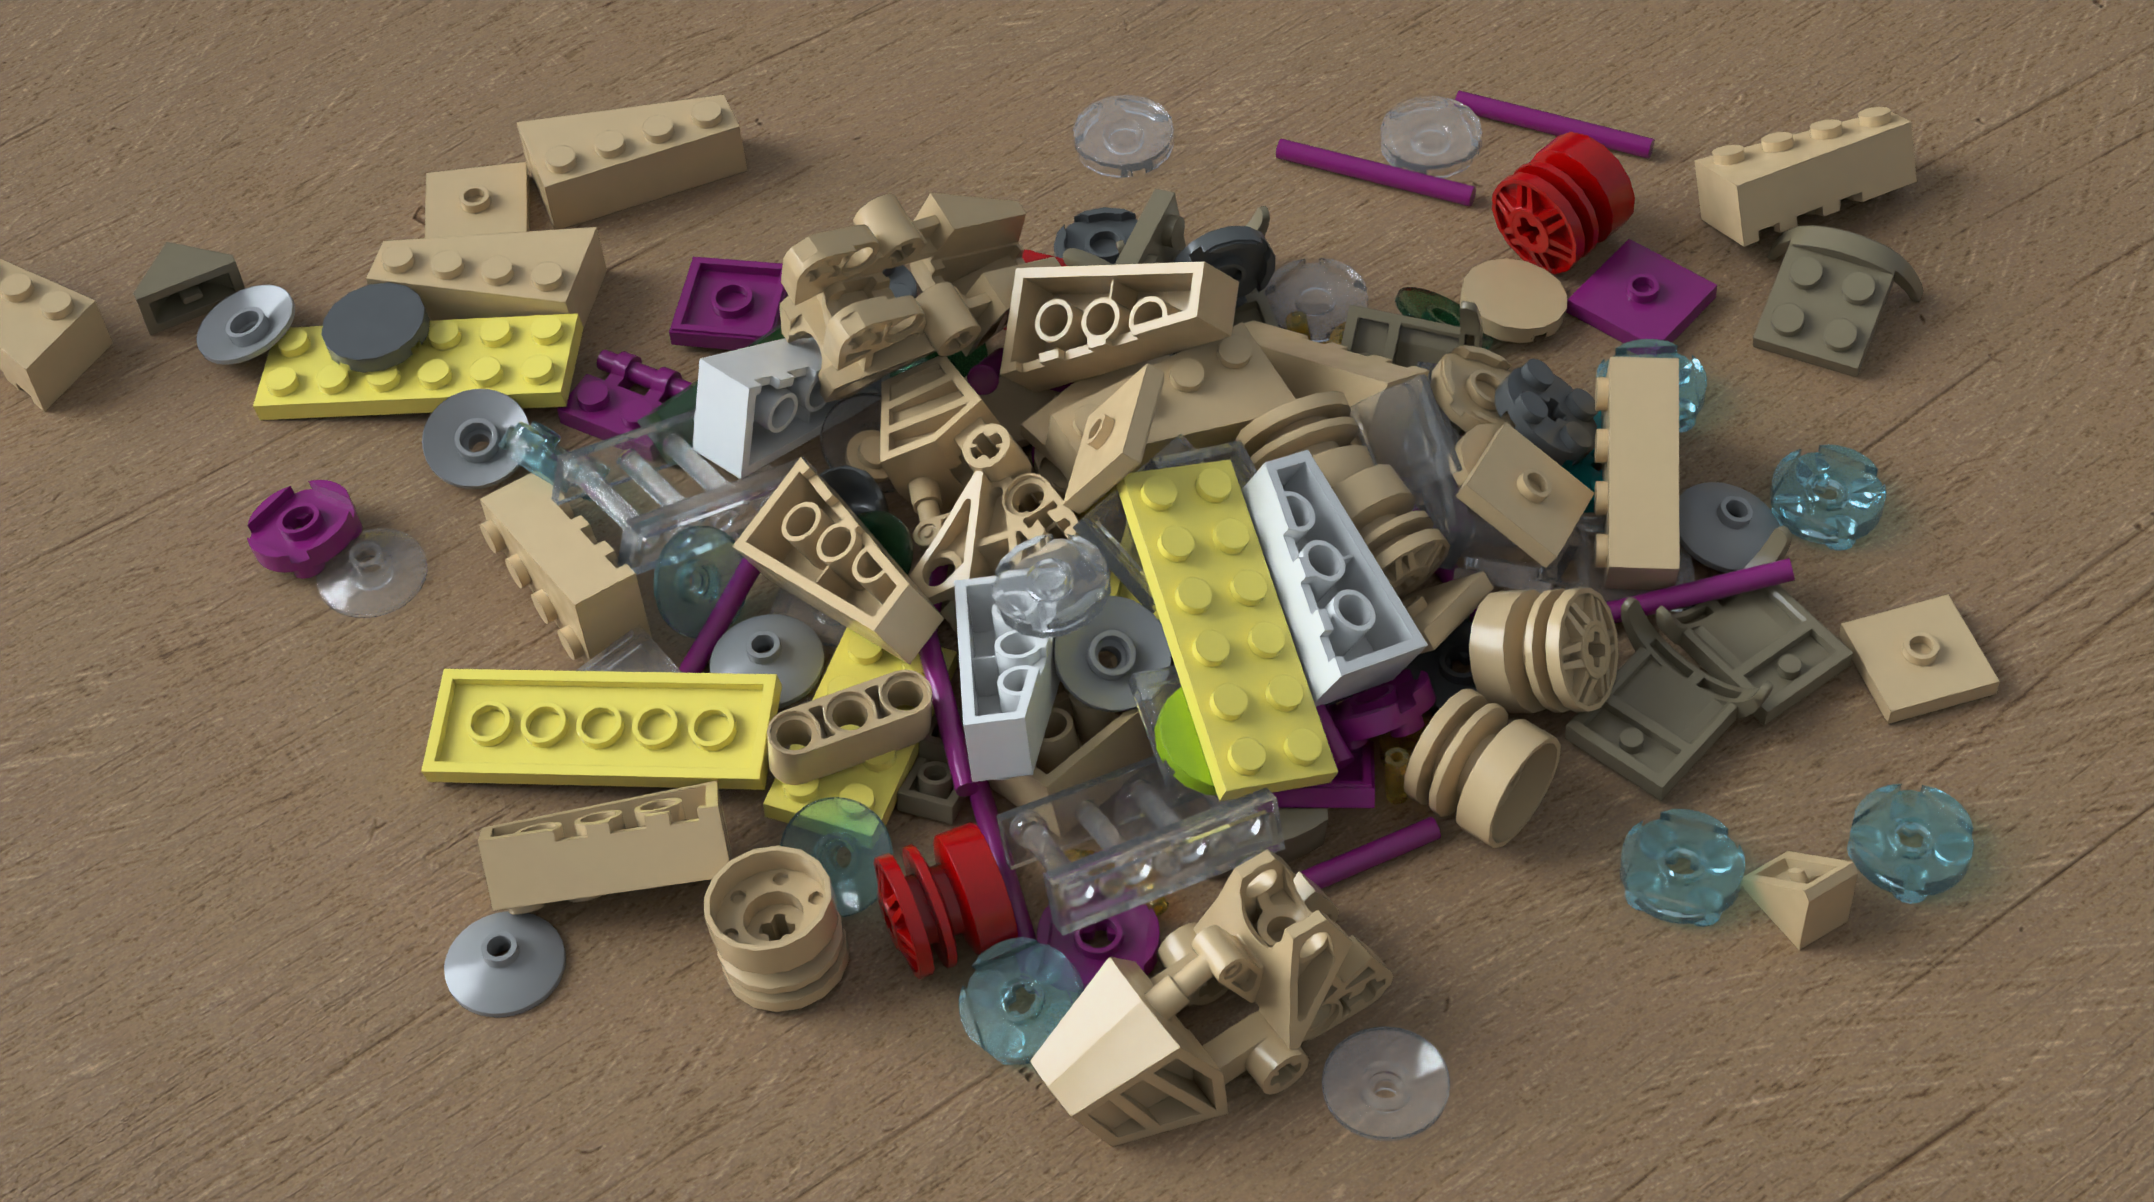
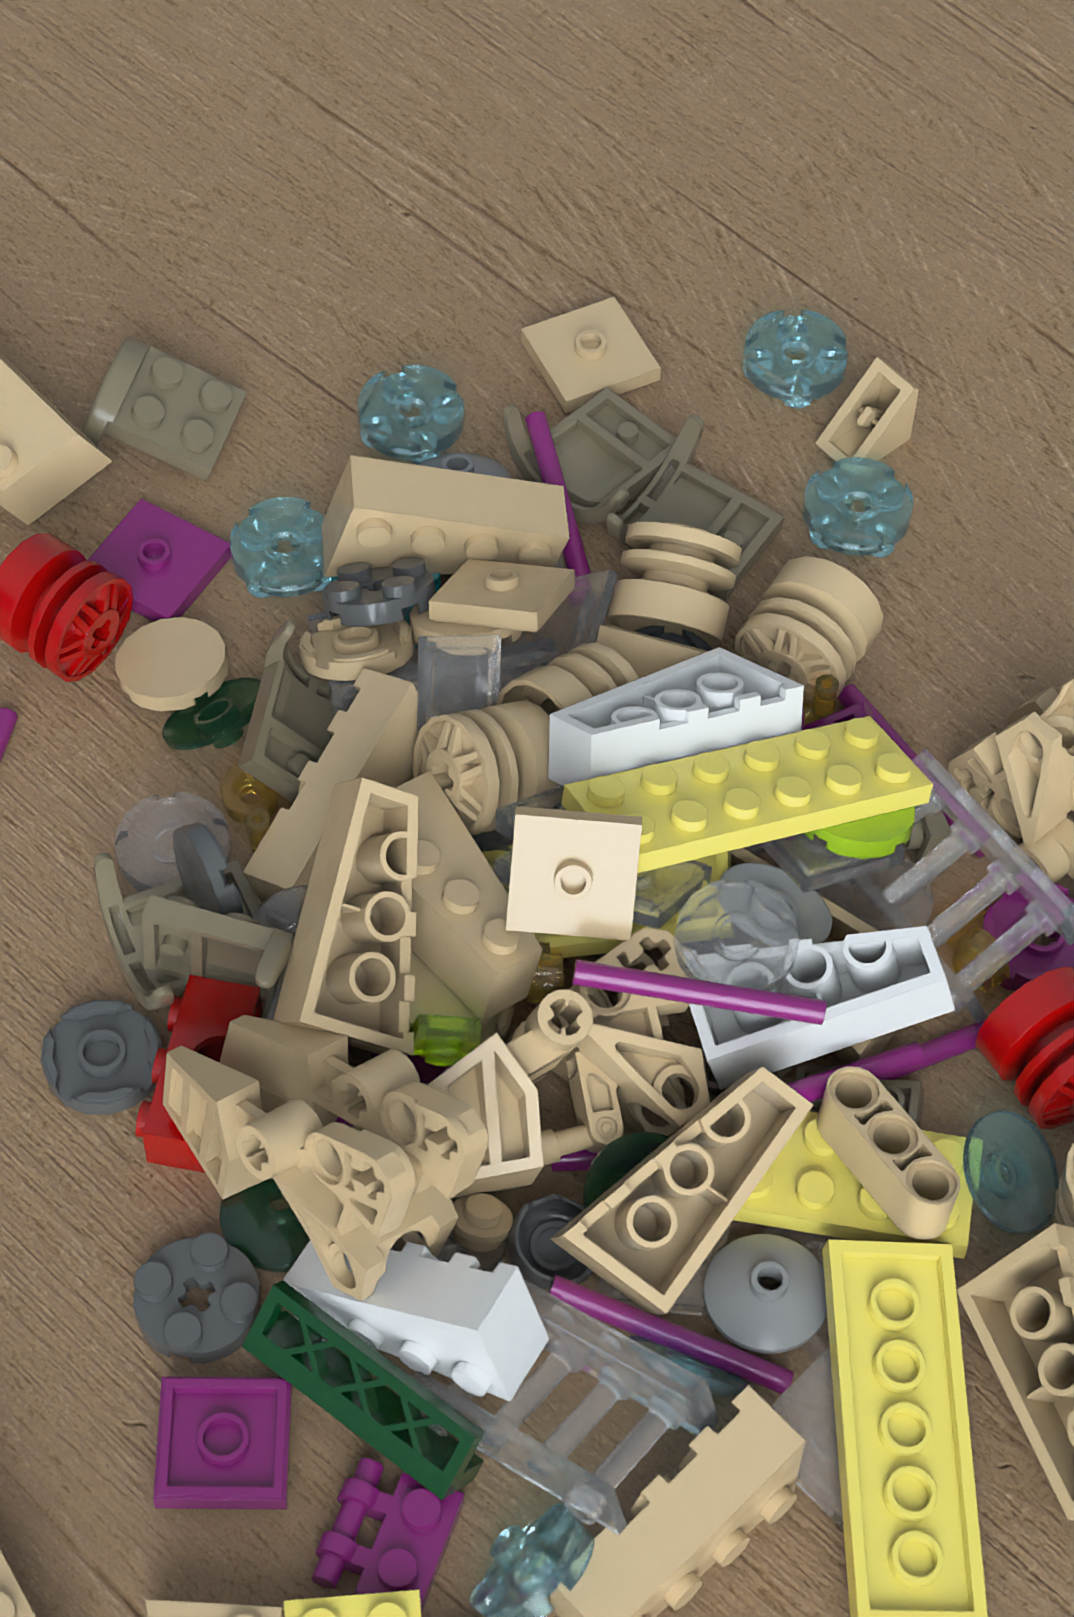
camera: 105 degrees left, 5 degrees up
(992, 545) = (699, 992): none -> magenta bar
(1015, 399) = (445, 1038): none -> clear neon green plate

